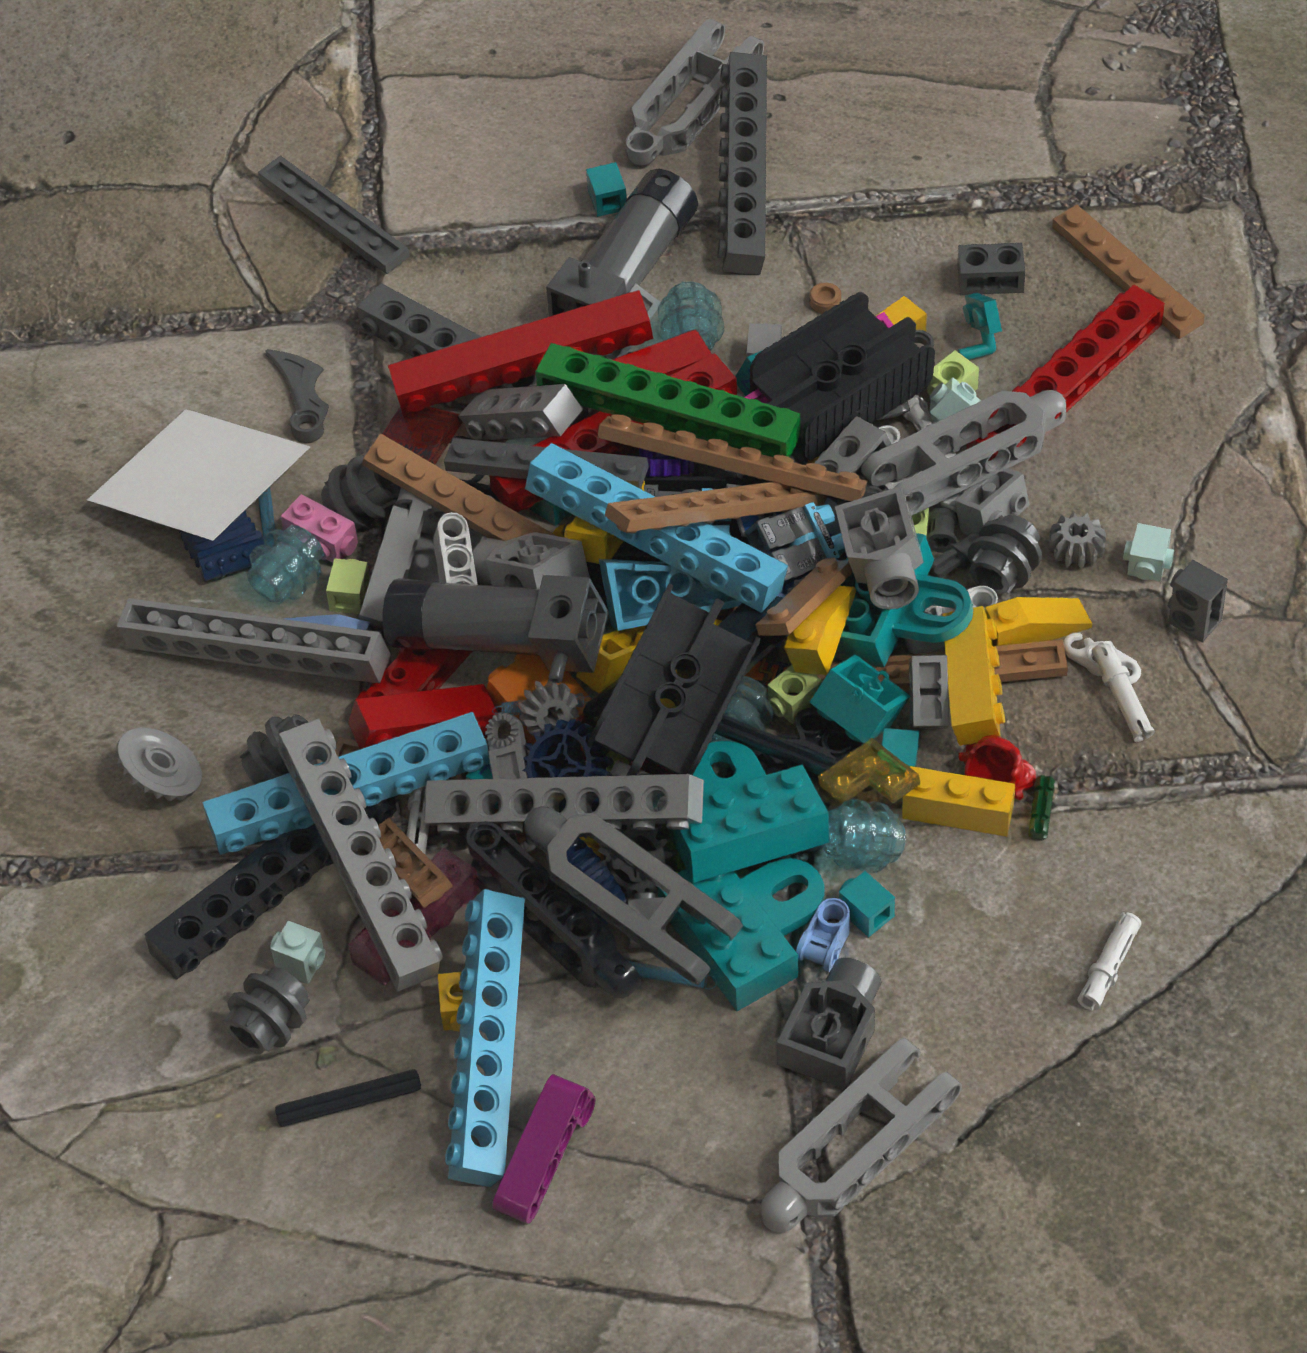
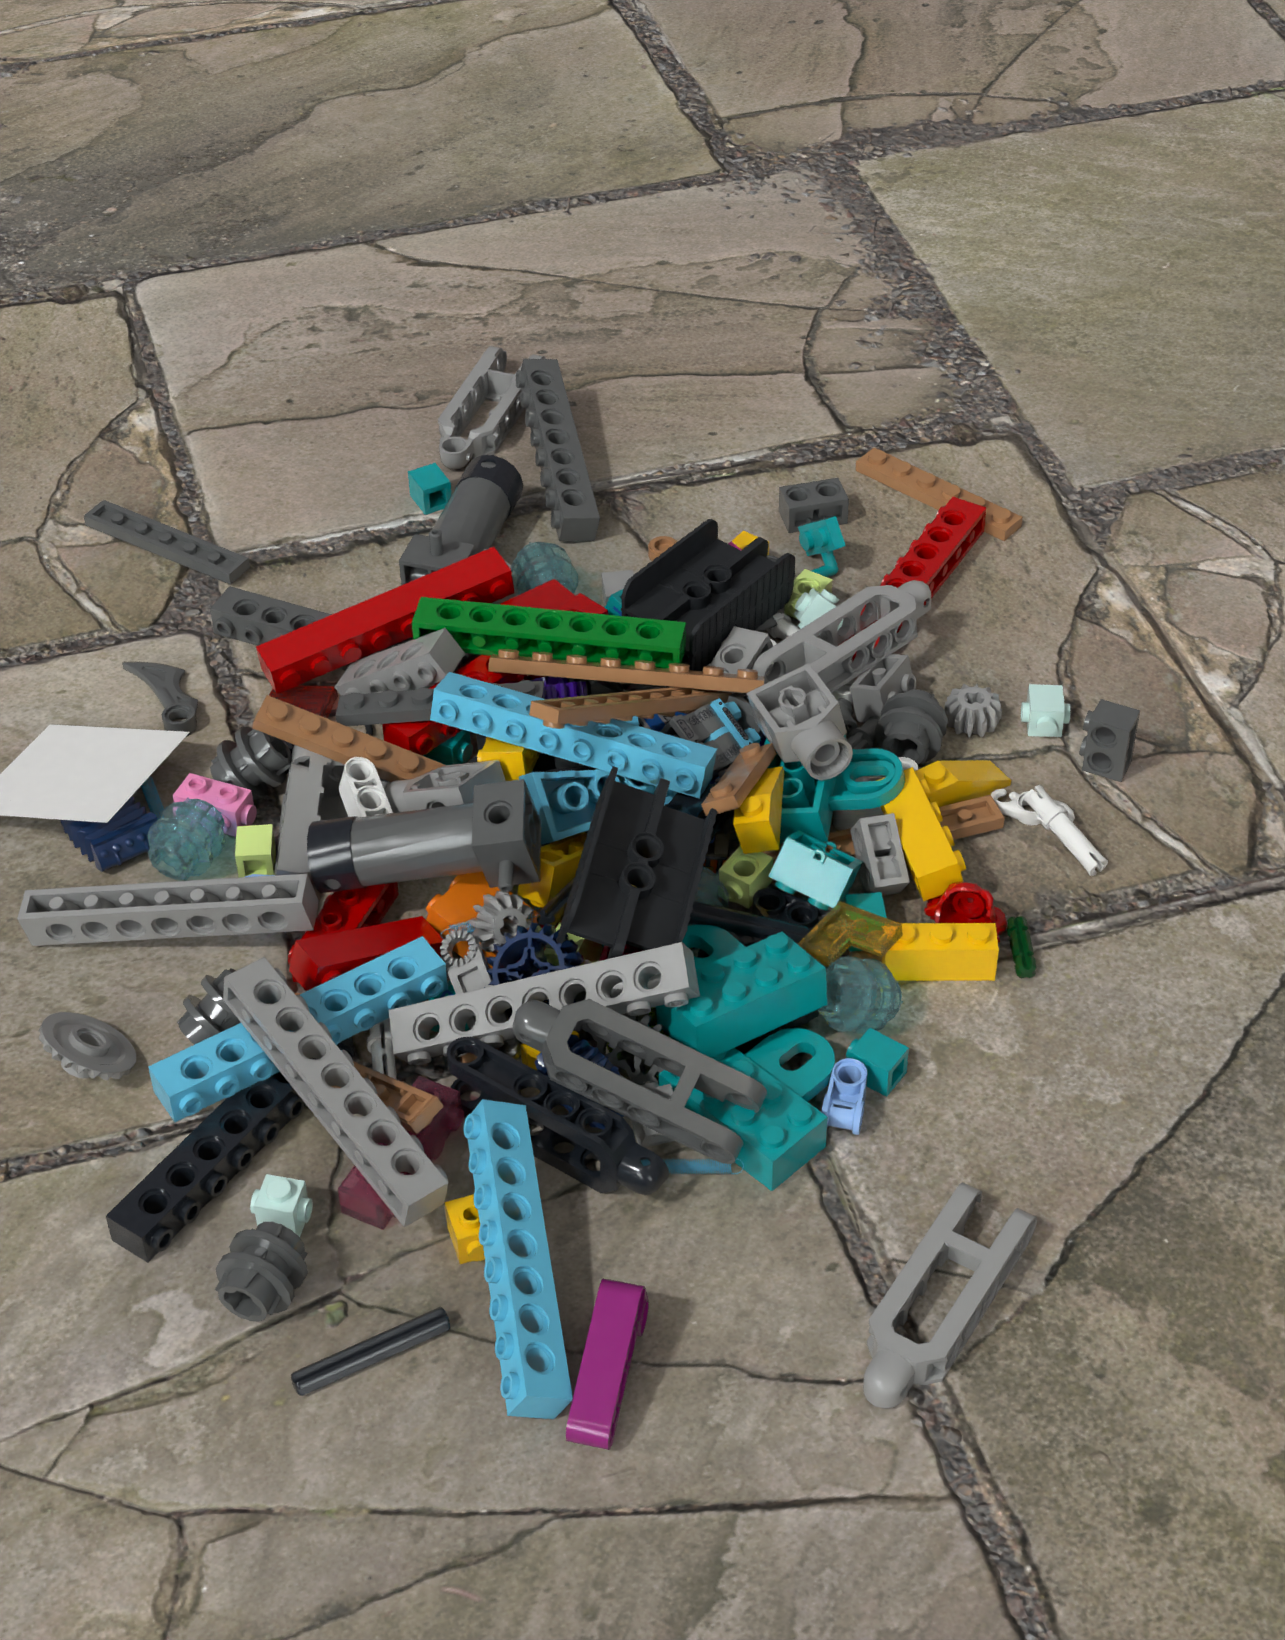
camera: 15 degrees left, 10 degrees down
(831, 1024) = (882, 1182): dark grey brick -> none
(1104, 972) = (1141, 1086): white pin -> none

